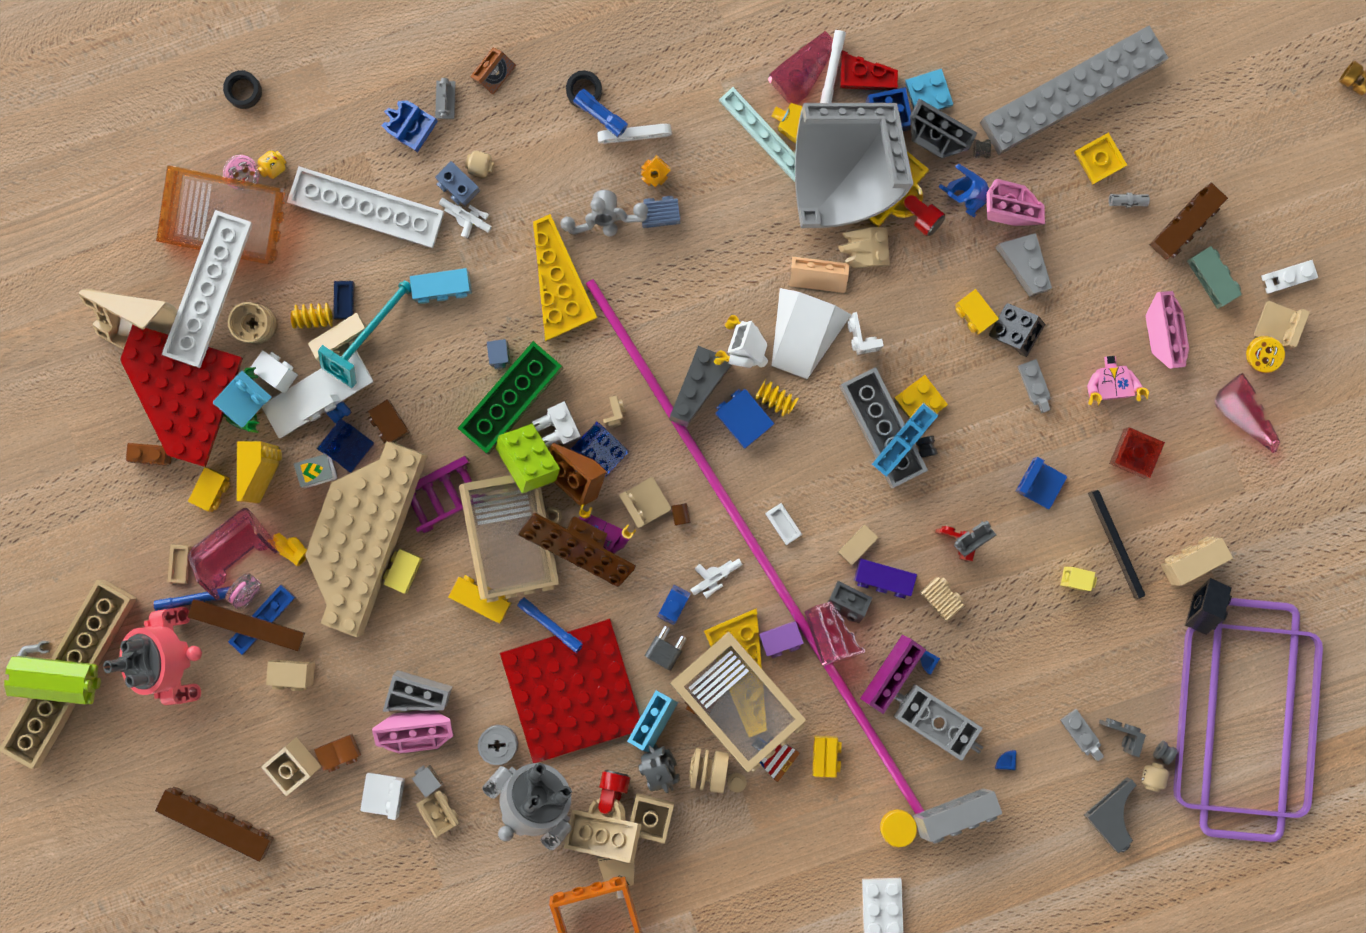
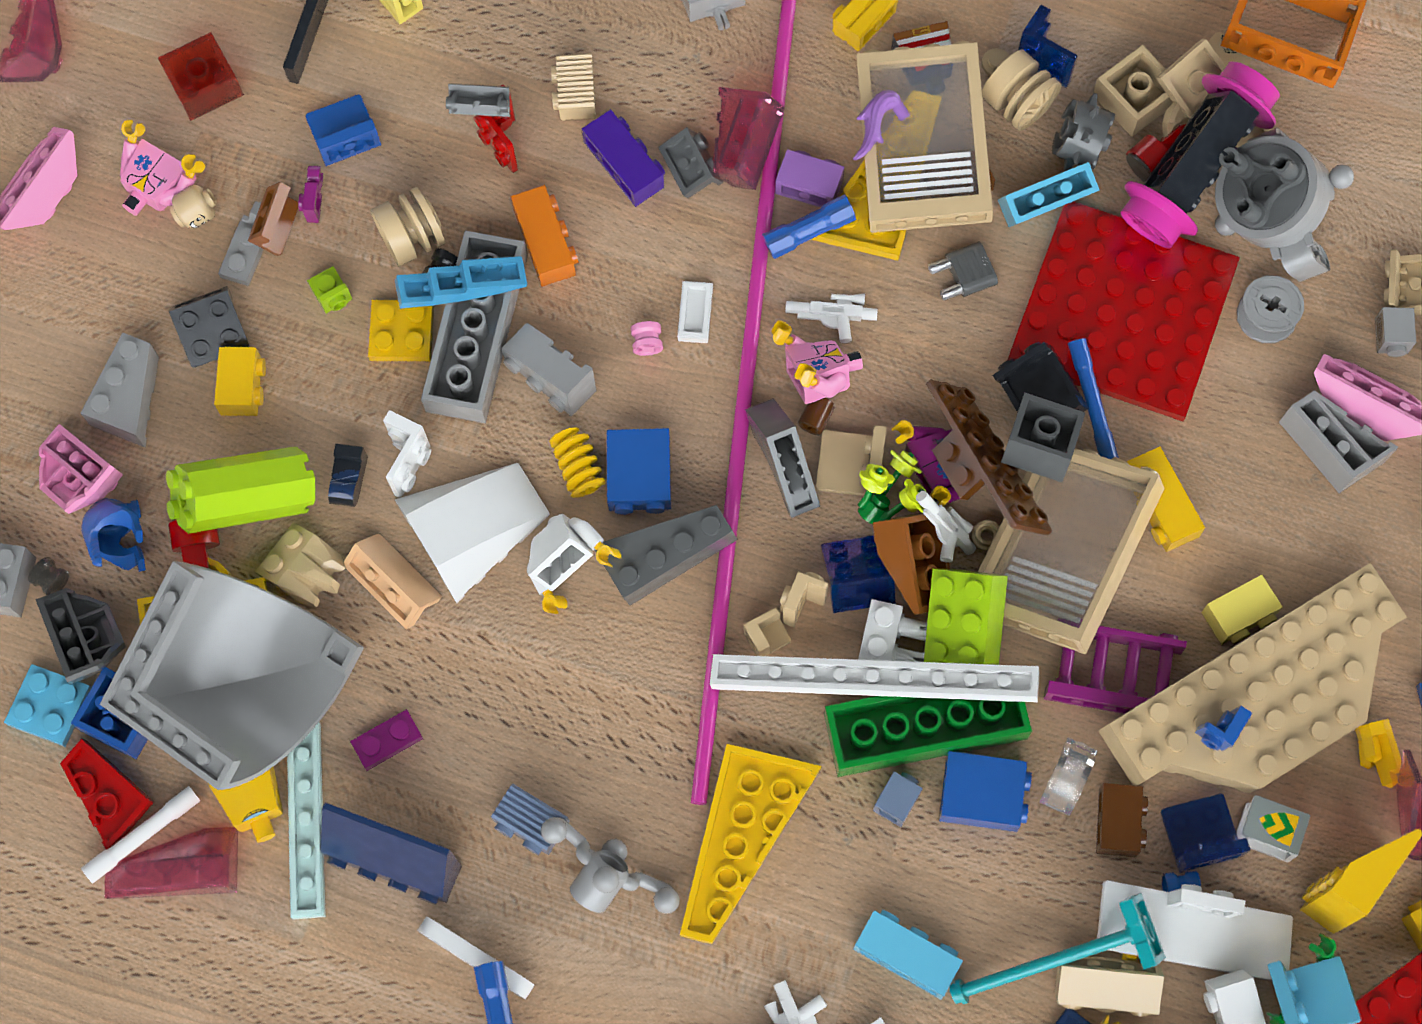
camera: 140 degrees left, 15 degrees down
(363, 494) = (1230, 726): none -> blue bracket
(426, 425) = (1069, 776): none -> clear brick
(460, 387) = (984, 791): none -> blue brick
(548, 395) = (875, 678): none -> white plate
(555, 576) = (1043, 437): none -> dark grey brick
(570, 500) = (949, 525): none -> white piece
(578, 610) = (1041, 375): none -> black panel
(589, 793) = (1230, 111): none -> brick
(619, 385) = (766, 633): none -> tan panel
(621, 494) = (879, 481): none -> neon yellow plant
(658, 165) = (490, 879): light orange brick -> none
(673, 605) = (915, 311): blue torso -> none
(680, 478) = (785, 456): none -> dark grey arch
(698, 537) = (816, 367): none -> bright pink torso
(709, 145) = (387, 854): none -> dark blue slope
(718, 798) = (1048, 54): none -> clear blue bracket
(753, 621) = (829, 217): none -> blue axle
(757, 199) = (386, 740): none -> magenta plate
(769, 688) = (873, 115): none -> medium lavender piece
(795, 489) = (646, 338): none -> bright pink wheel
(830, 434) = (549, 369): none -> light grey wedge
(858, 544) = (623, 221): tan tile -> none
(882, 306) = (347, 475): none -> black leg
(890, 504) = (544, 235): none -> orange brick
(893, 674) = (707, 42): magenta brick -> none
(921, 252) = (240, 489): none -> lime brick
(929, 662) = (651, 34): blue tile -> none
(960, 452) = (408, 226): none -> tan wheel
(973, 394) = (330, 290): none -> lime bracket
(1023, 432) = (311, 199): none -> magenta plate
(1032, 406) = (274, 219): none -> panel
(1078, 382) = (193, 207): none -> tan head

